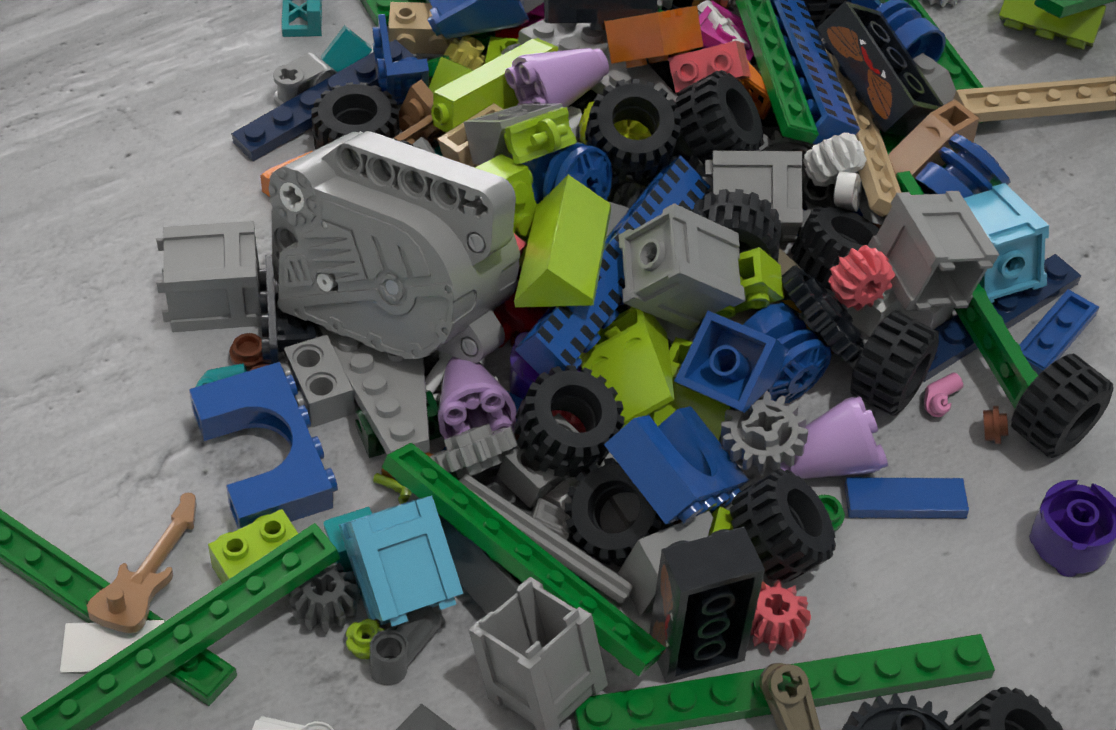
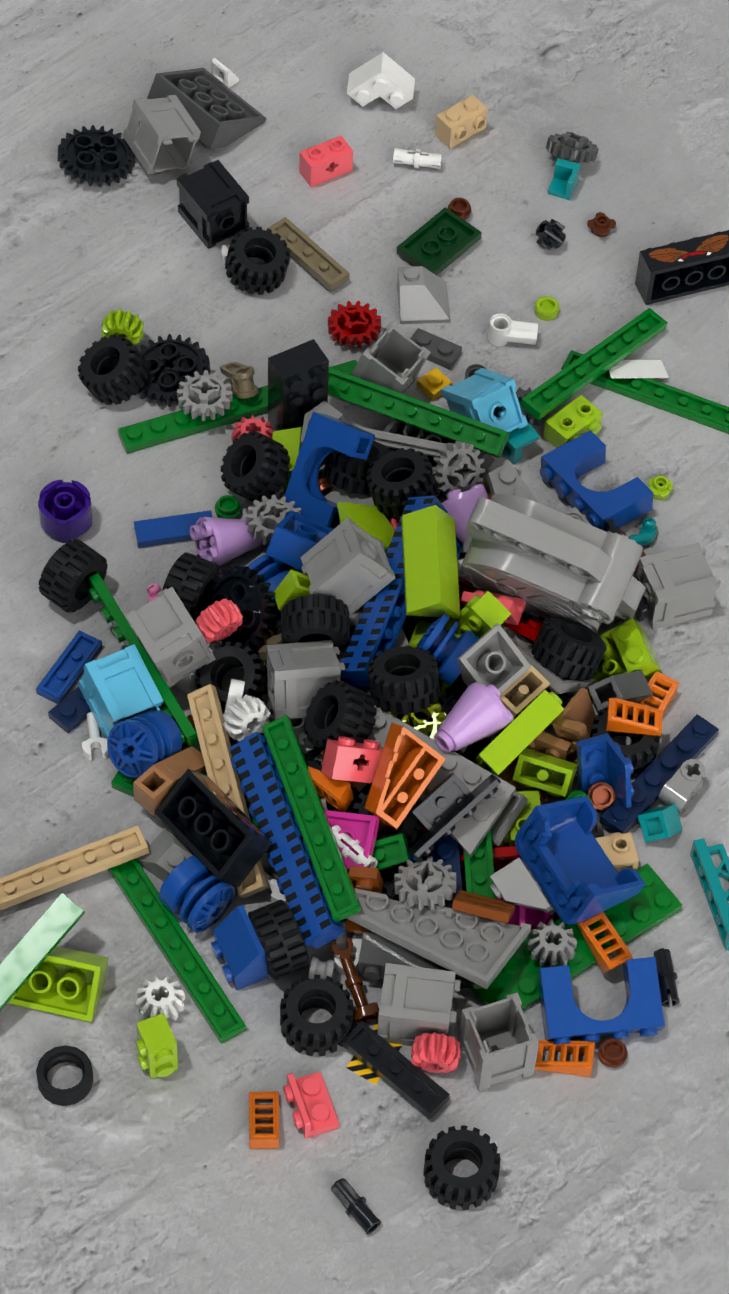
camera: 170 degrees right, 5 degrees up
(127, 599) = (638, 384): medium nougat piece -> none
(166, 454) = (662, 491): none -> lime plate
(353, 108) = (624, 707): none -> orange slope
(456, 678) = (432, 383): none -> yellow plate
(539, 135) = (465, 621): lime hips -> none
(854, 672) = (204, 395): none -> light grey gear
(995, 425) = (116, 581): copper plate -> none

